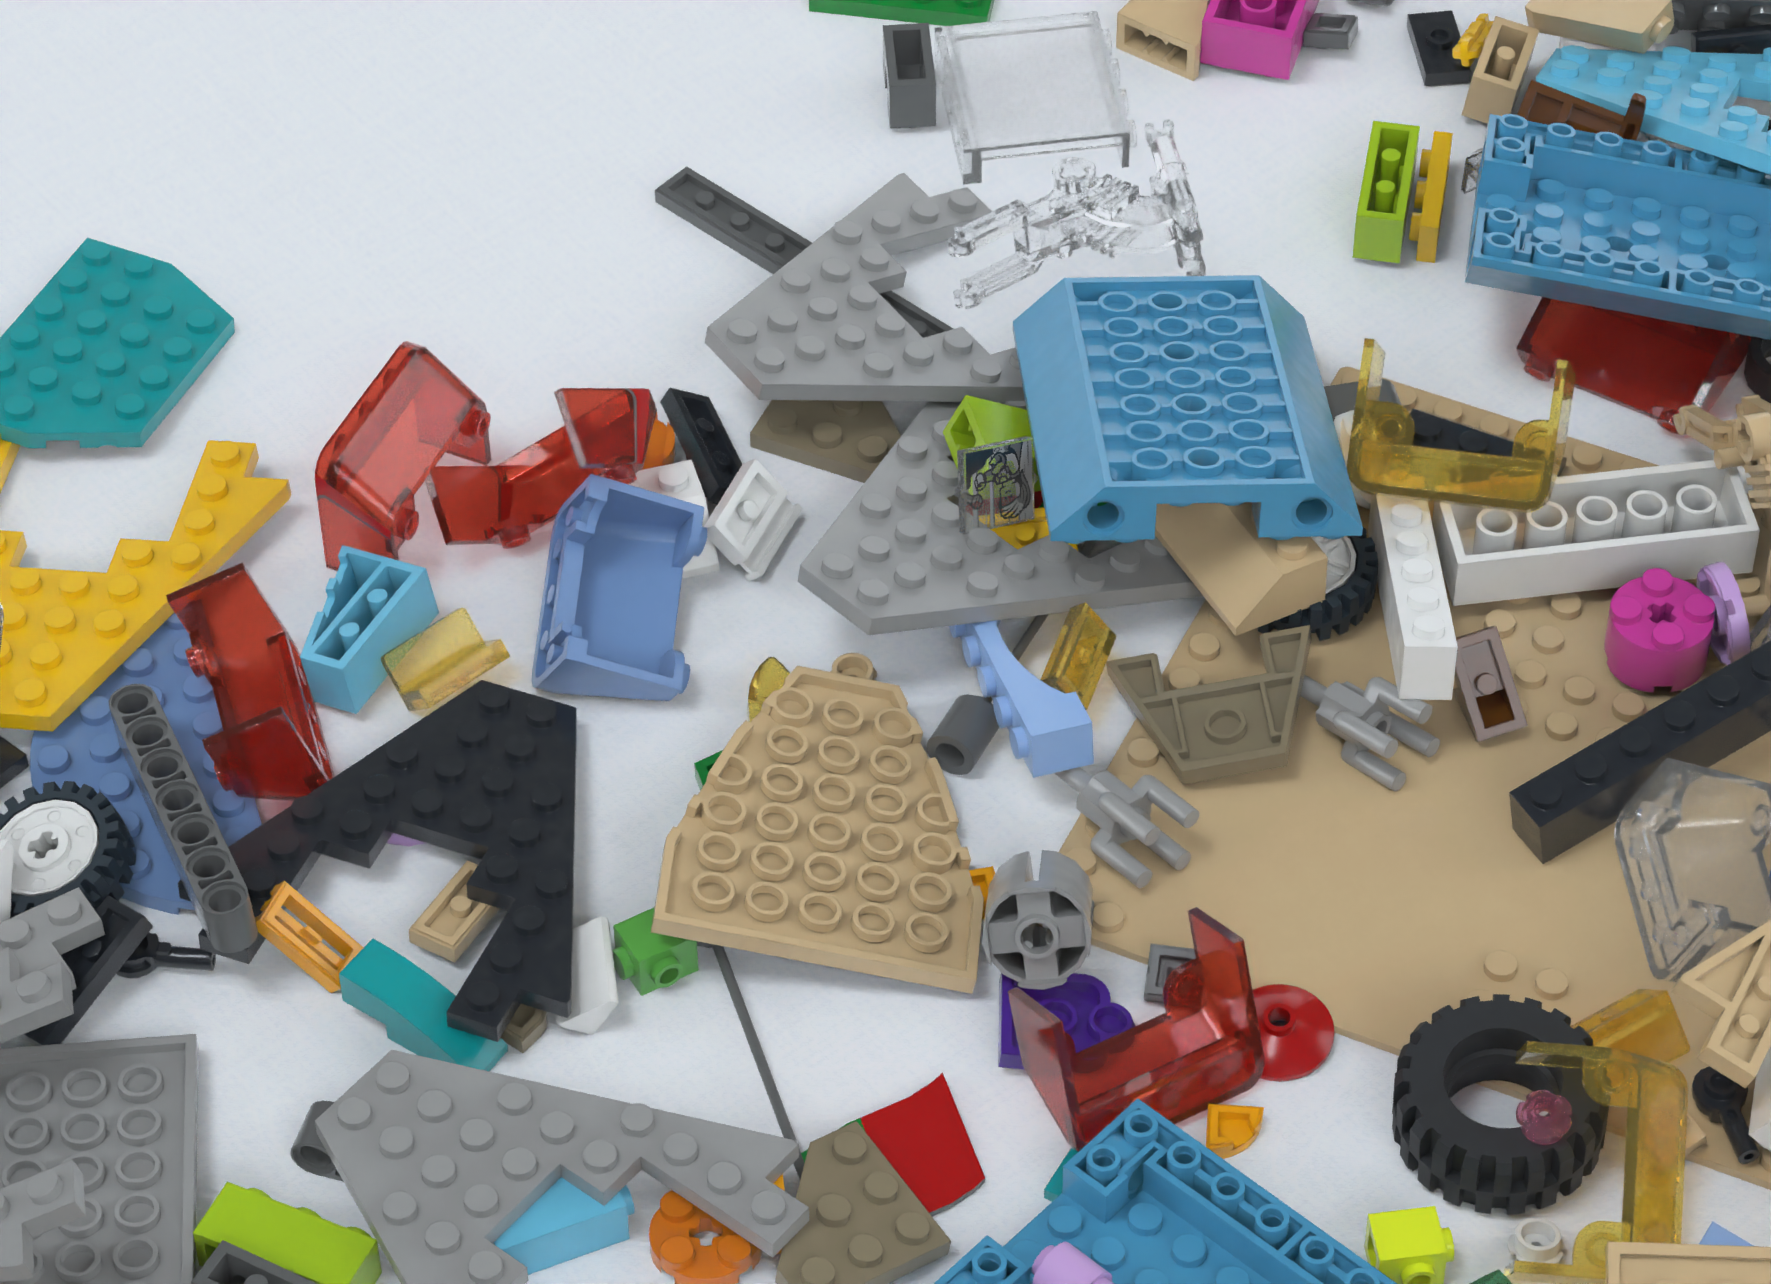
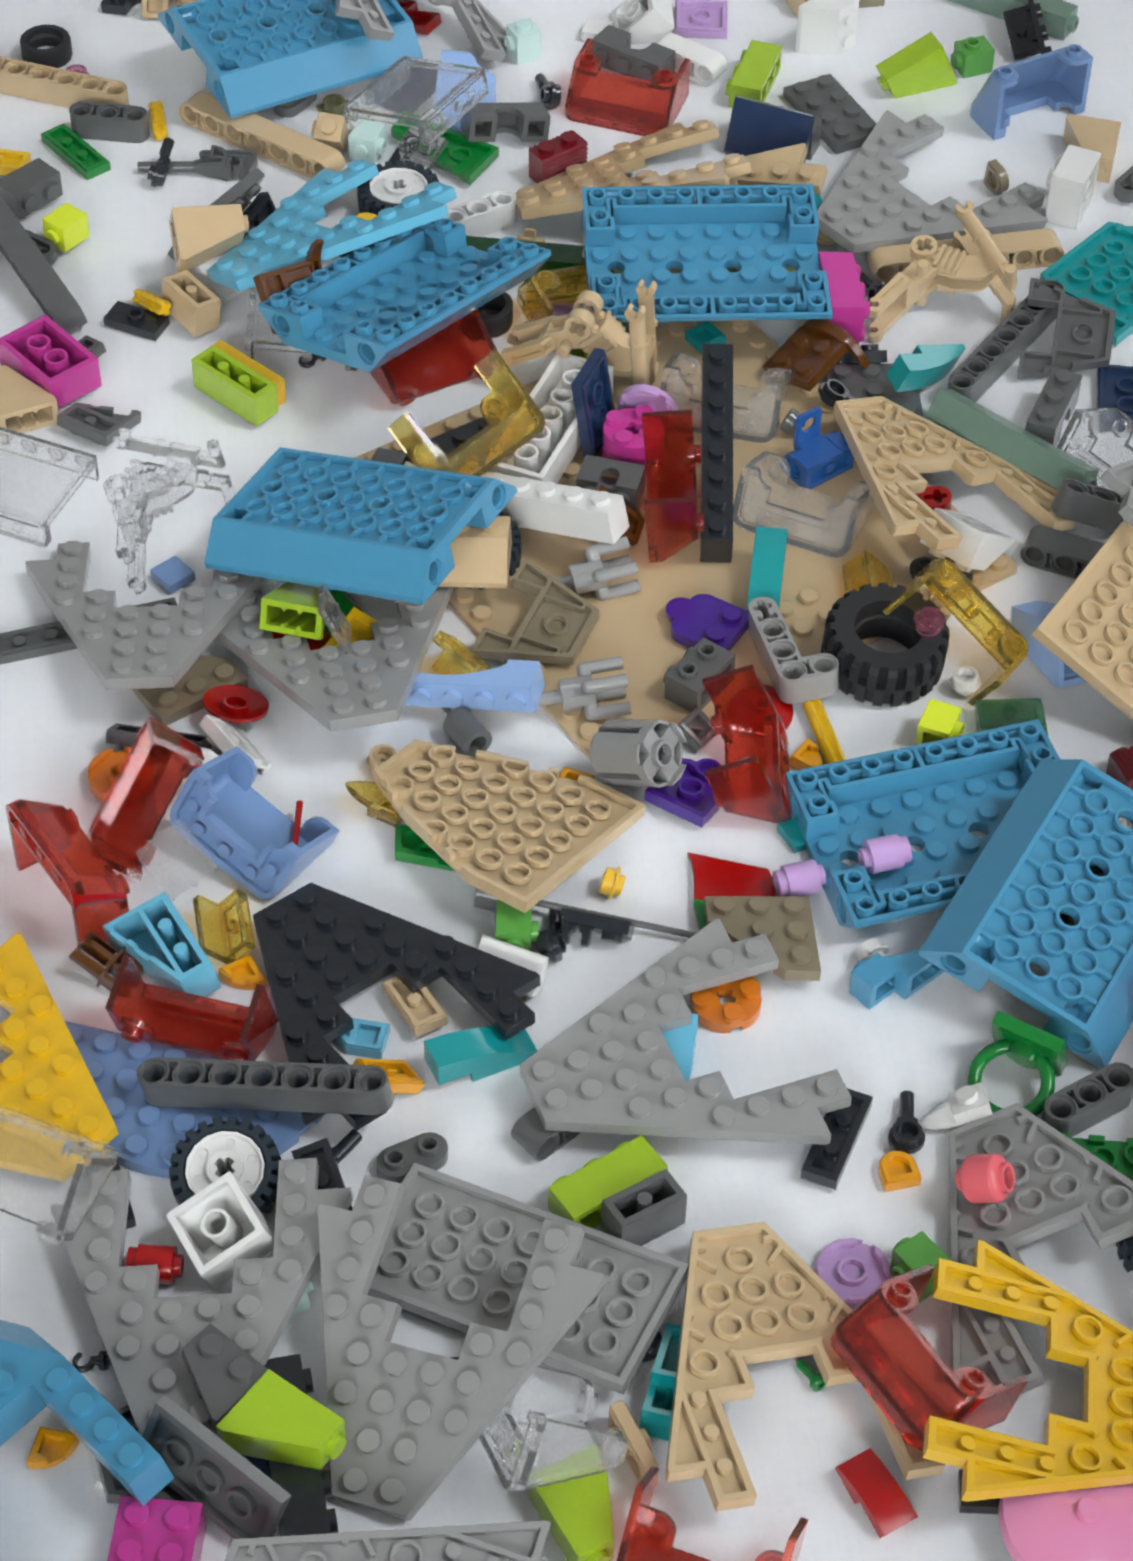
camera: 60 degrees left, 0 degrees up
(214, 1031) = (412, 1151): none -> dark grey plate
(308, 592) = (100, 959): none -> reddish brown arm
(378, 892) = (366, 1039): none -> medium azure tile
(394, 718) = (242, 974): none -> light orange tile
(512, 562) = (176, 859): none -> clear piece
(659, 999) = (550, 940): none -> black plate
(661, 650) = (297, 822): none -> red piece
(721, 1029) = (611, 928): none -> black plate
(818, 482) = (235, 703): none -> red dish
(818, 1013) = (612, 882): none -> yellow plate
(974, 1212) = (799, 879): none -> lavender brick
(1001, 313) = (172, 574): none -> medium blue tile
(1212, 110) = (96, 422): none -> dark grey wing
(1275, 920) = (684, 679): none -> dark grey brick
(1293, 1123) = (823, 731): none -> yellow axle
(1356, 1017) = (793, 676): none -> light grey beam
(1387, 892) = (706, 618): none -> dark purple plate
(1516, 747) = (670, 483): none -> clear red windscreen
(1536, 904) = (767, 563): none -> teal slope
(1554, 651) = (629, 484): none -> dark grey brick
(1655, 526) = (592, 401): none -> dark blue tile

